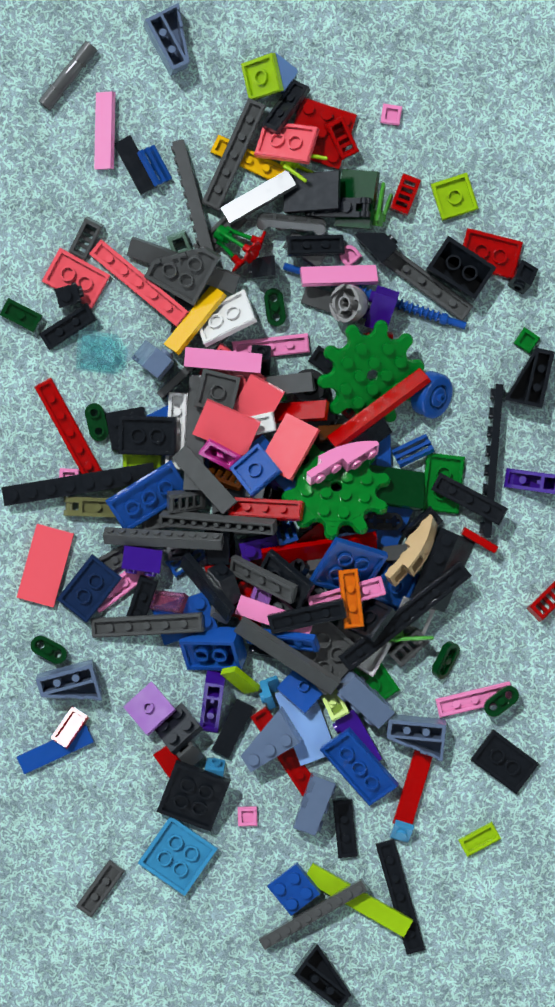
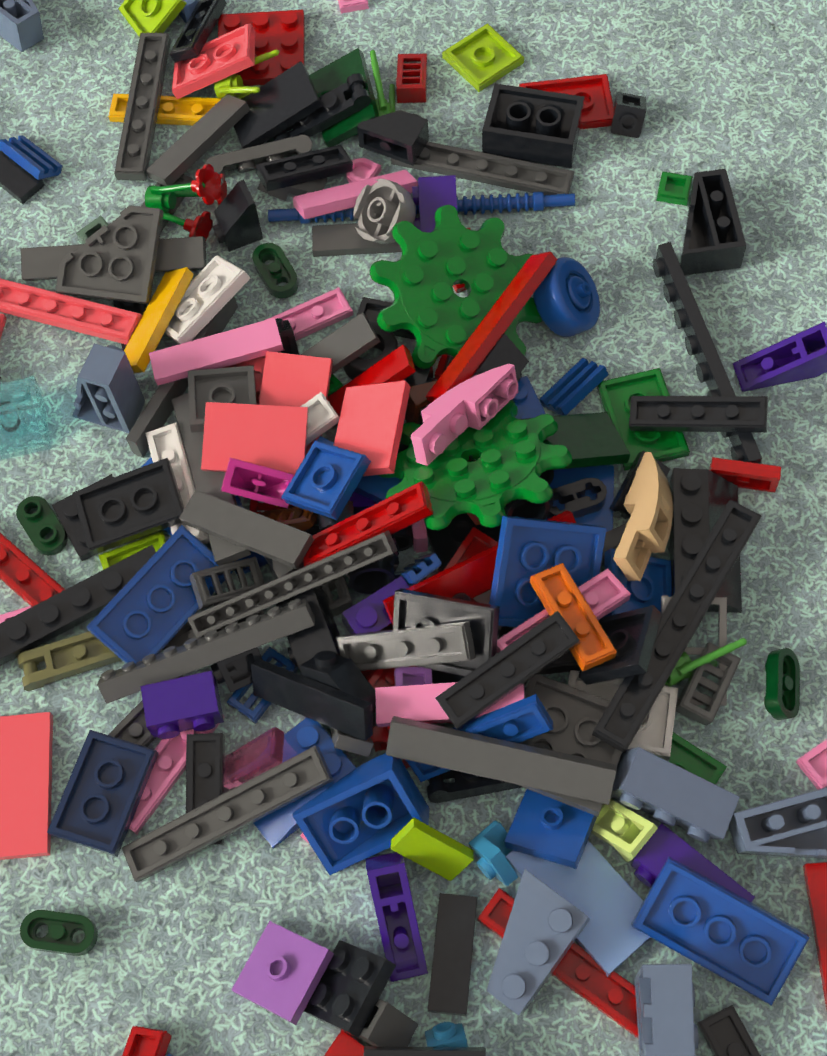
camera: 20 degrees left, 25 degrees down
(70, 682) = (114, 974): sand blue wedge -> none
(191, 193) = (90, 161): dark grey piece -> none
(340, 120) = (284, 14): red slope -> none

